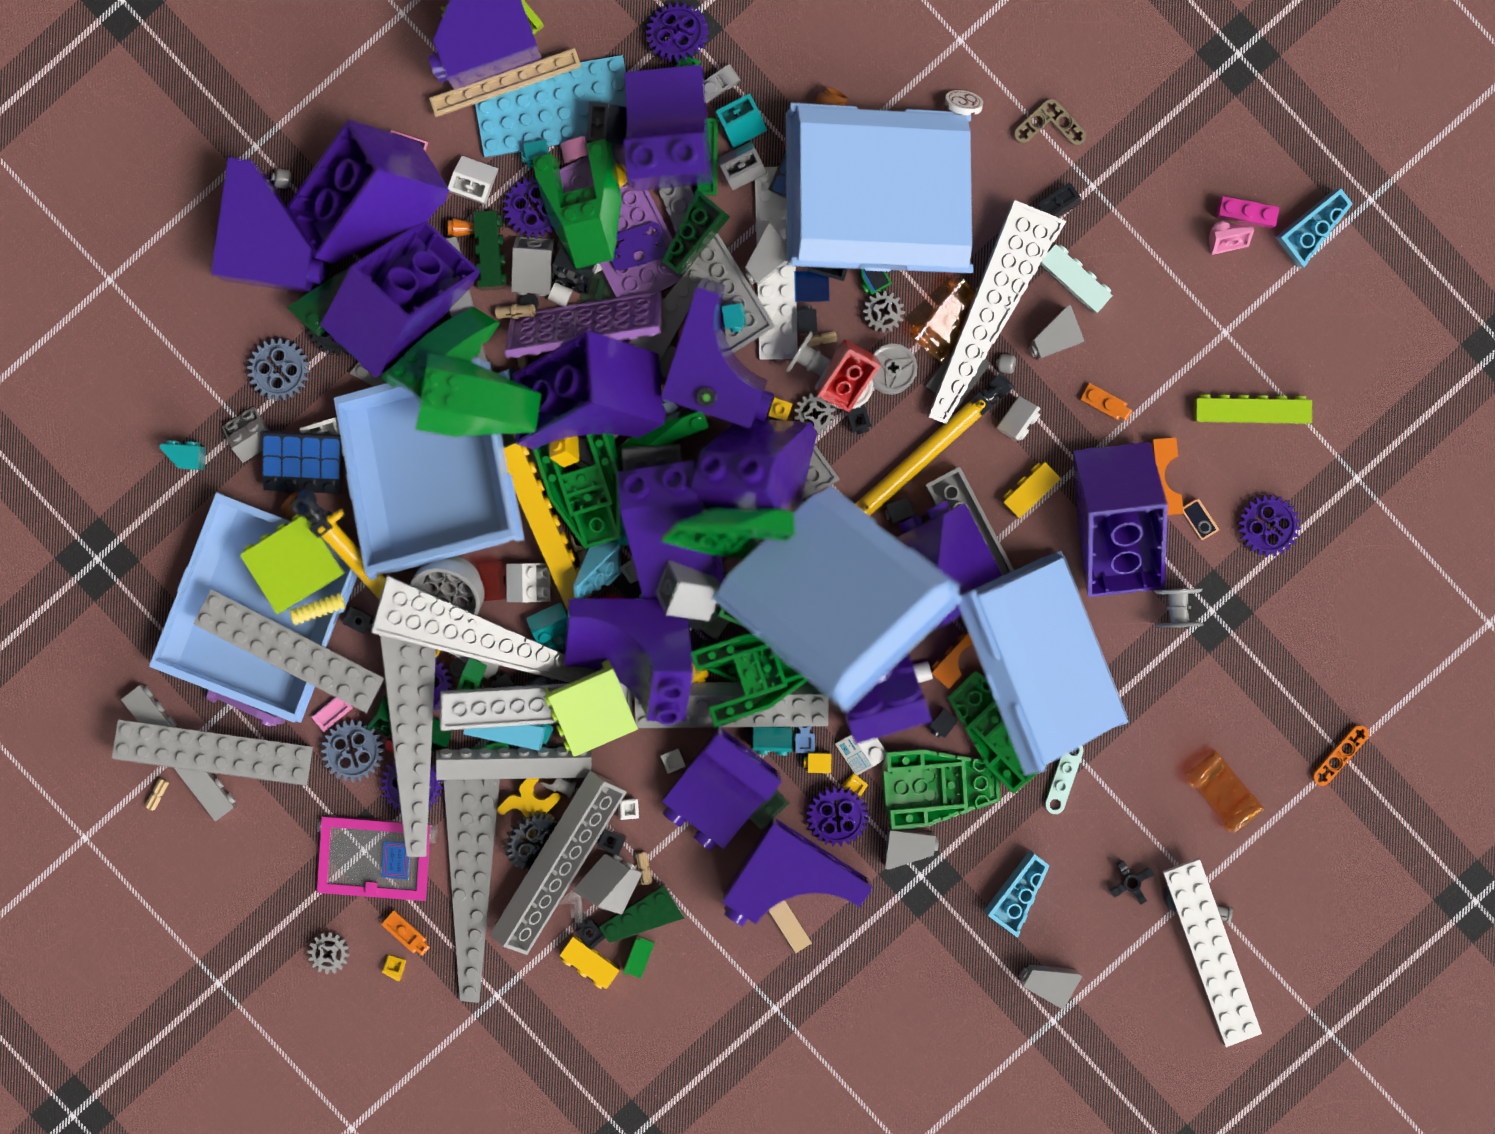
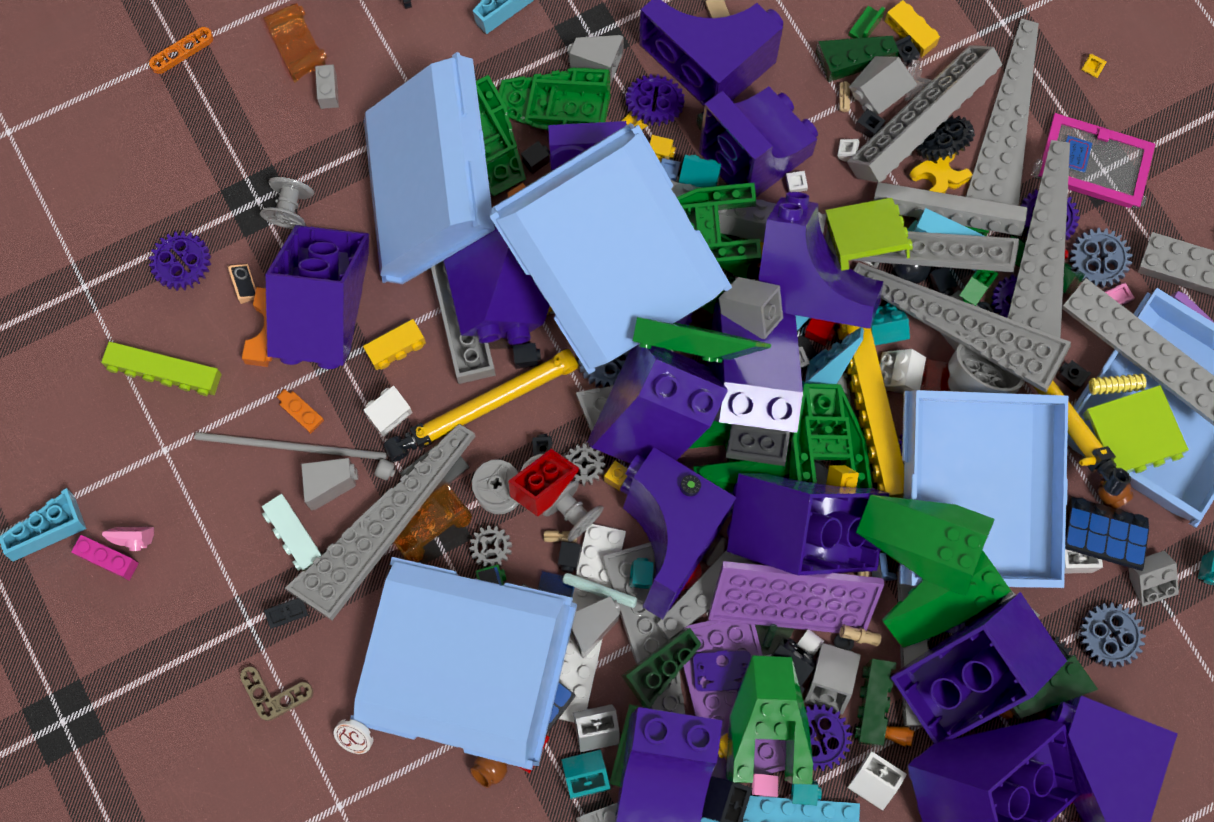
camera: 165 degrees left, 15 degrees down
(324, 947) = (1153, 88): light grey gear -> none
(406, 933) = (1078, 90): orange hinge -> none
(562, 786) = (903, 180): light grey piece -> none
(769, 292) = (599, 590): none -> light aqua axle
(1103, 365) = (290, 446): none -> light grey piece
(1177, 748) = (327, 86): none -> light grey brick

